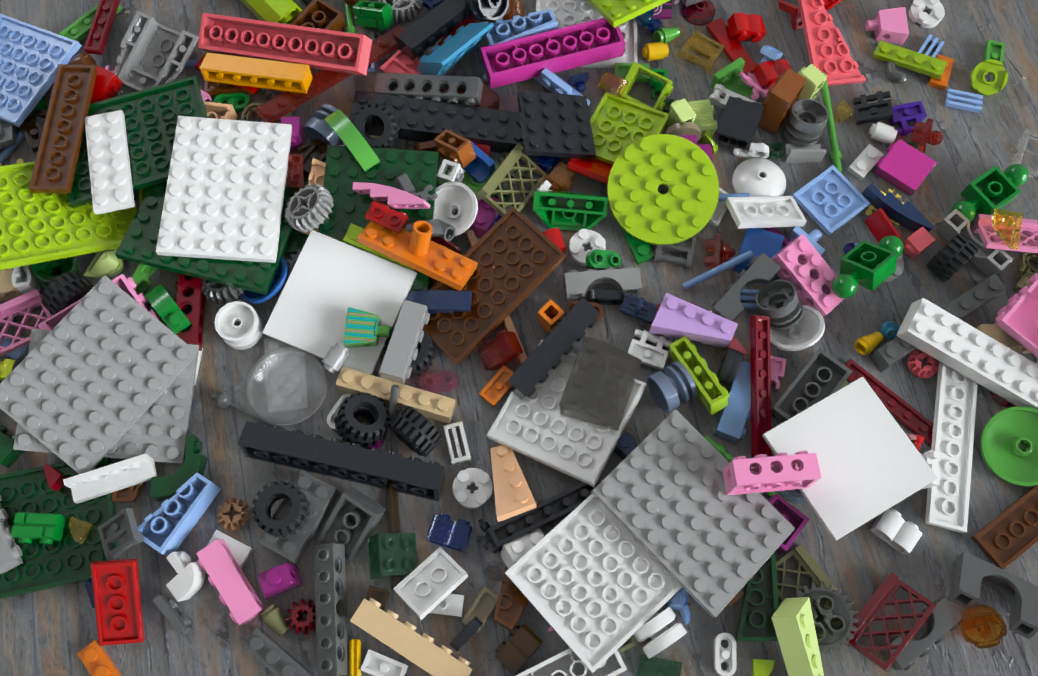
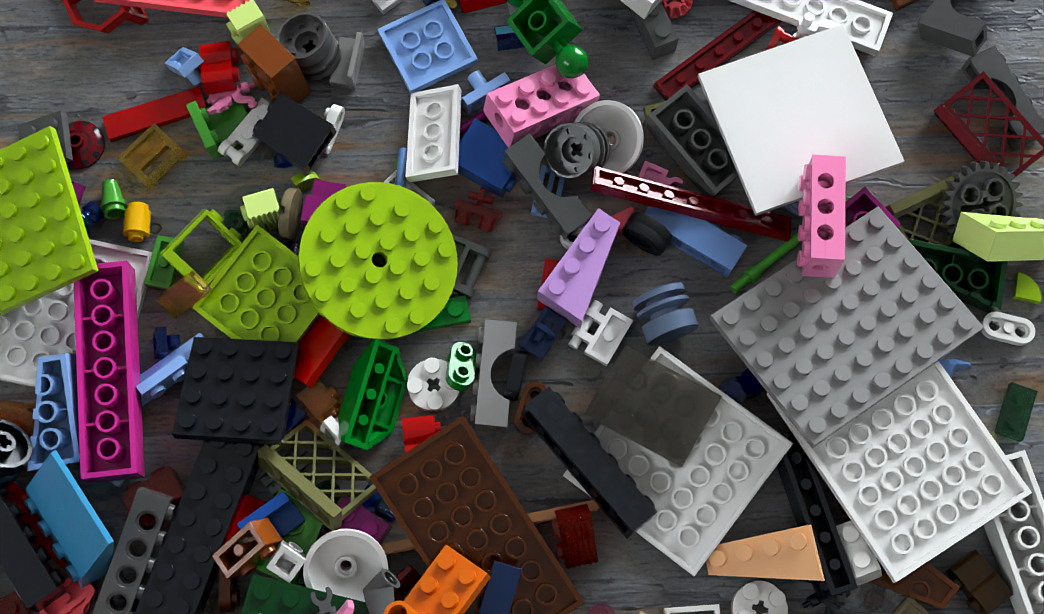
camera: 80 degrees left, 5 degrees up
(495, 389) = (623, 551): orange plate -> none
(549, 316) = (537, 455): orange brick -> none
(657, 630) = (987, 396): white wheel -> none
(658, 86) = (181, 220): green plate -> none
(704, 115) = (257, 178): yellowish green brick -> none
(707, 384) = (643, 277): lime brick -> none
(719, 269) = (506, 216): medium blue bar -> none
(746, 27) = (131, 85): red brick -> none
(748, 180) = (371, 144): white dish -> none
(778, 146) = (333, 90): clear green plate -> none
(835, 154) = (360, 21): bright green bar -> none
(868, 343) = (637, 55): yellow cone -> none
(889, 330) = (624, 25): dark azure plate -> none
(896, 531) = (889, 85): white brick -> none
(982, 626) = (1007, 28): clear orange cylinder -> none

